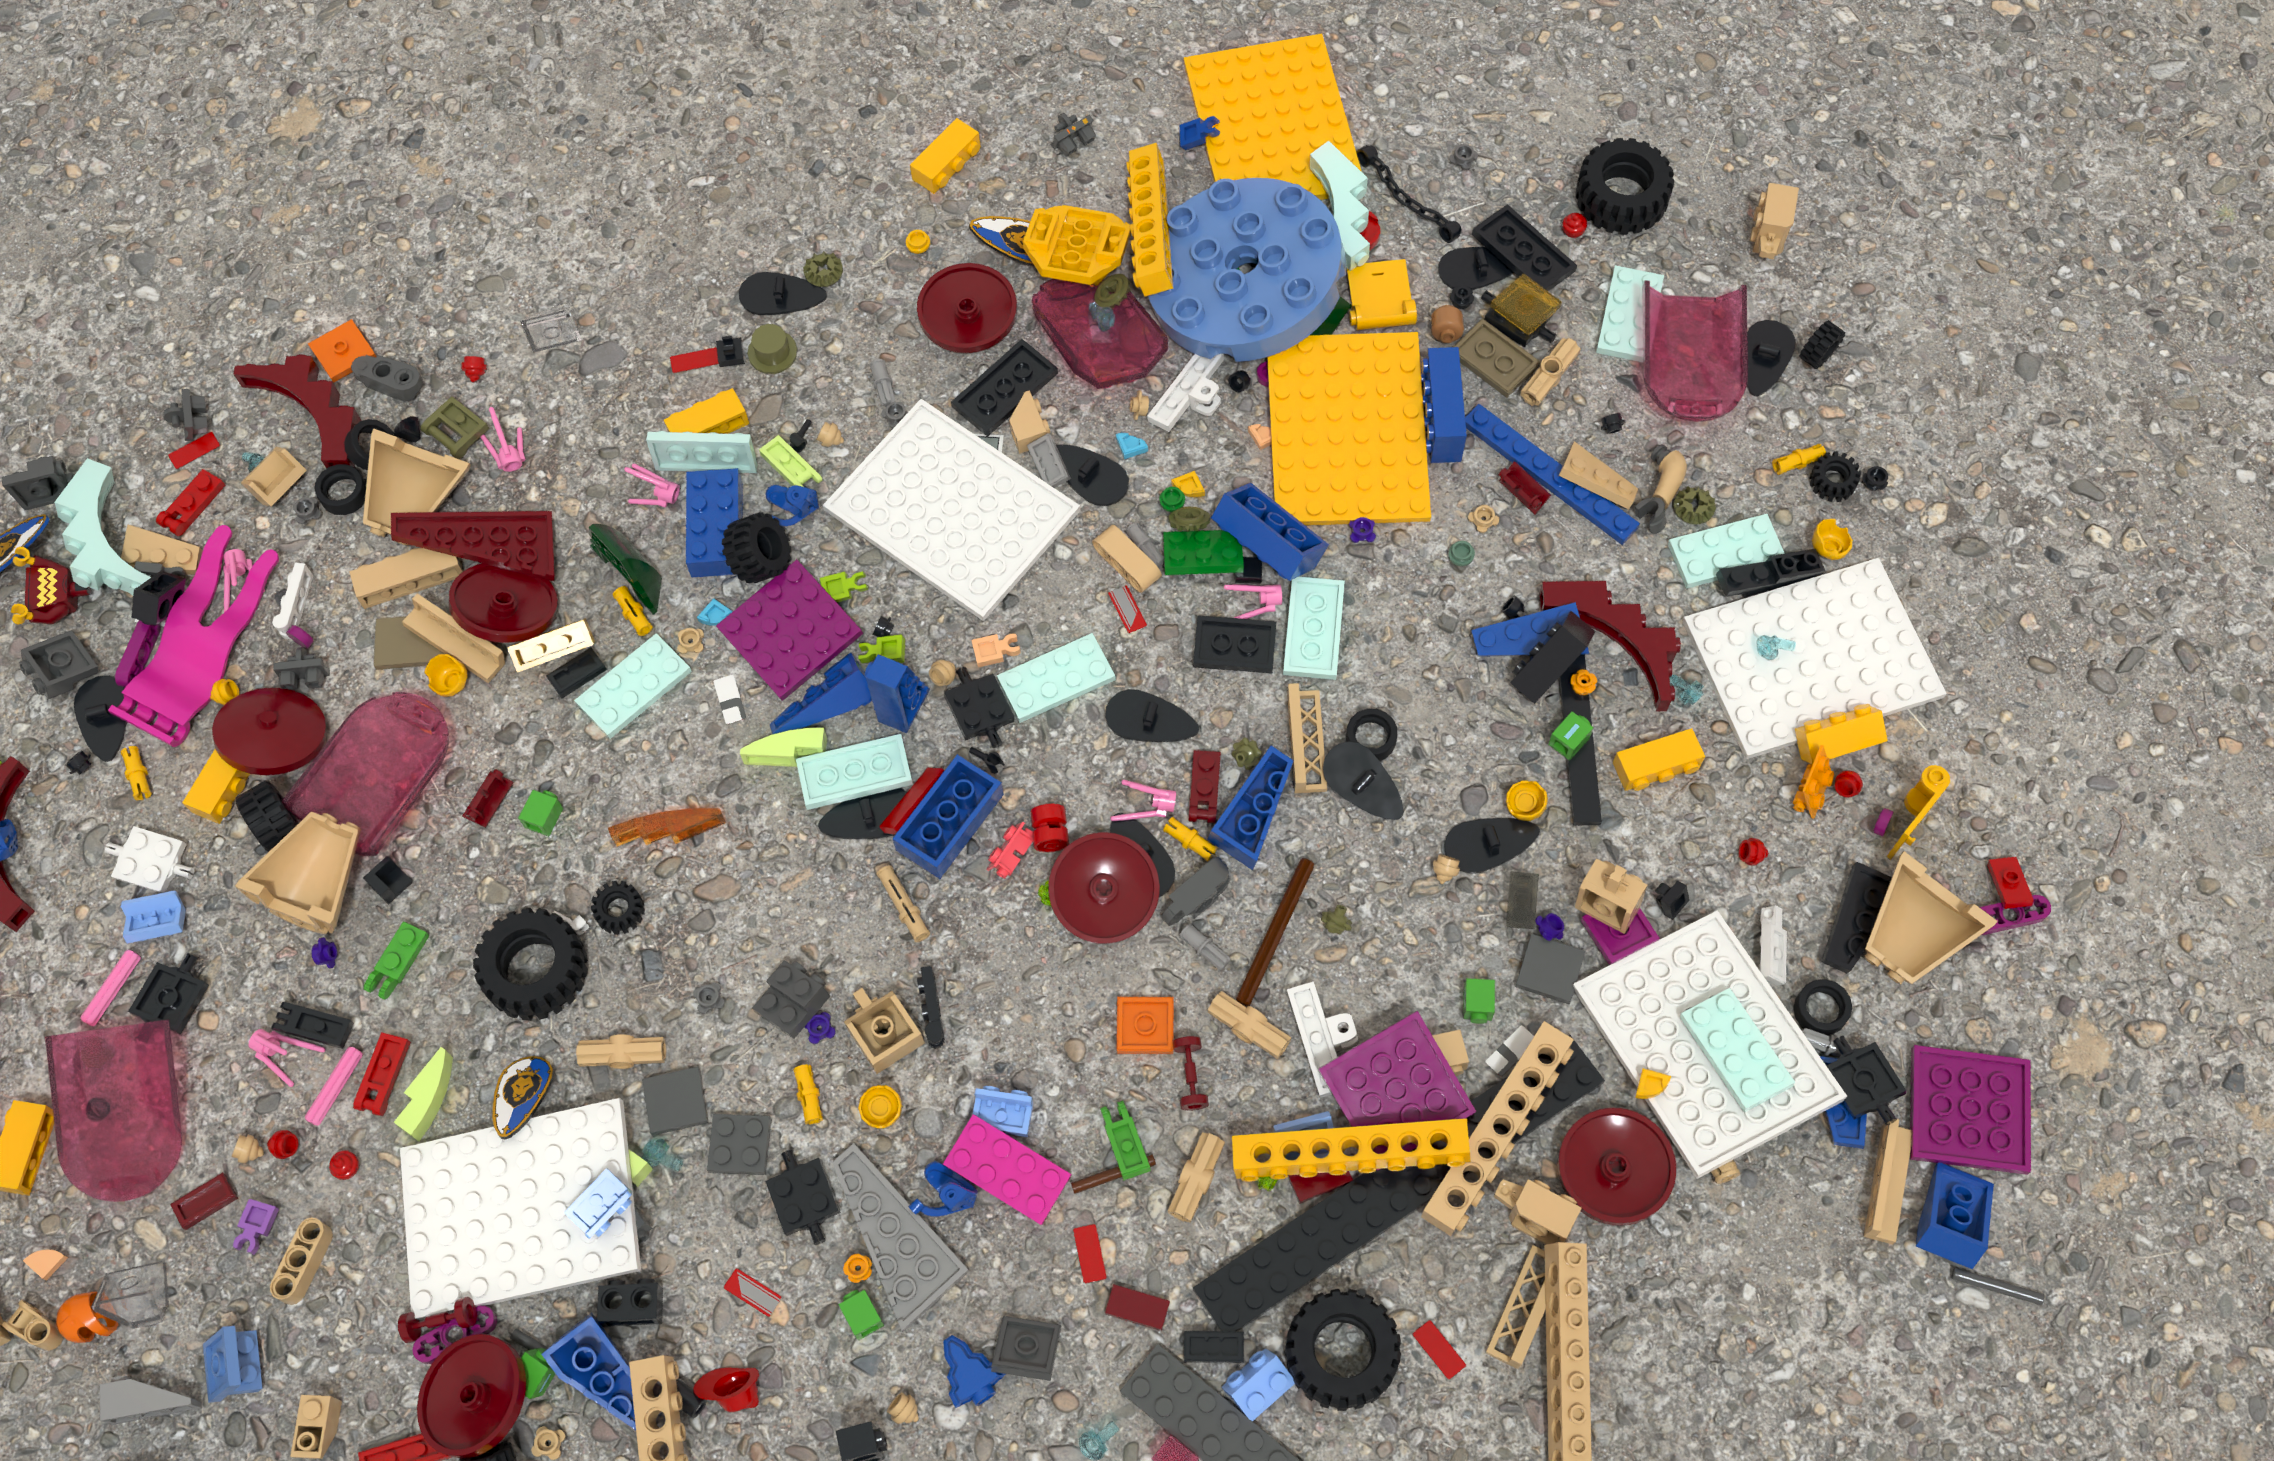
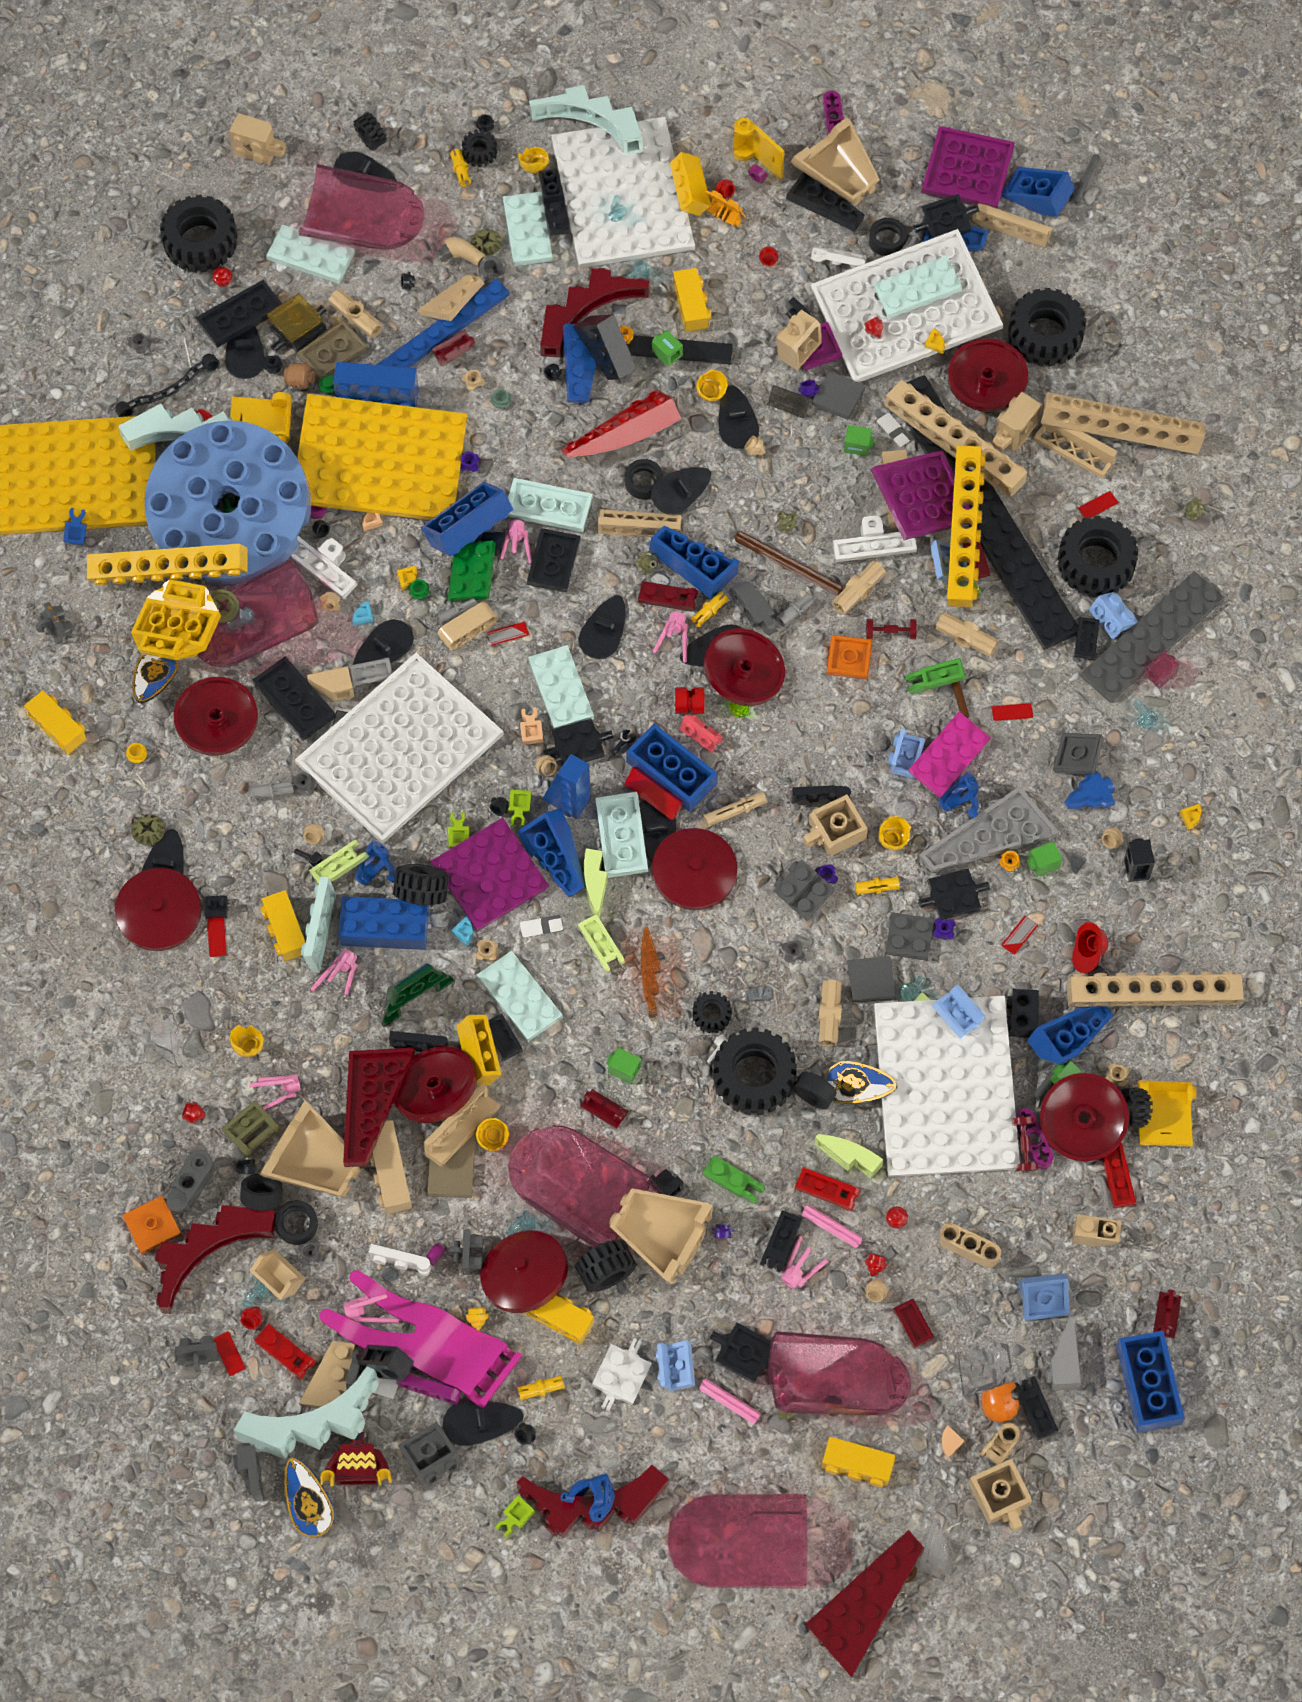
camera: 85 degrees left, 0 degrees up
(79, 1367) = (1036, 1409): none -> black hinge
(231, 462) = (251, 1317): none -> red plate
(255, 1221) = (934, 1281): medium lavender plate -> none
(334, 722) = (525, 1221): none -> clear light blue plate
(505, 1039) = (814, 1090): none -> black tyre
(558, 403) = (246, 1040): none -> yellow hair
(564, 584) = (419, 1042): none -> black hinge
(640, 622) = (453, 992): yellow pin -> none
(705, 766) = (600, 941): none -> yellowish green hinge
(722, 295) = (158, 909): none -> dark red dish
(757, 1194) = (944, 934): none -> dark purple plate
(771, 349) = (220, 875): olive piece -> none
(816, 865) = (694, 869): none -> dark red dish
(1137, 1307) = (1054, 684): dark red tile -> none
(1189, 519) = (438, 572): olive gear -> none
(1443, 704) = (627, 427): none -> wedge
(1658, 998) = (874, 327): none -> red plate
(1741, 1218) = (1053, 306): none -> black tyre
(1927, 605) = (597, 111): none -> light aqua arch
(2010, 882) = (812, 109): red plate -> none

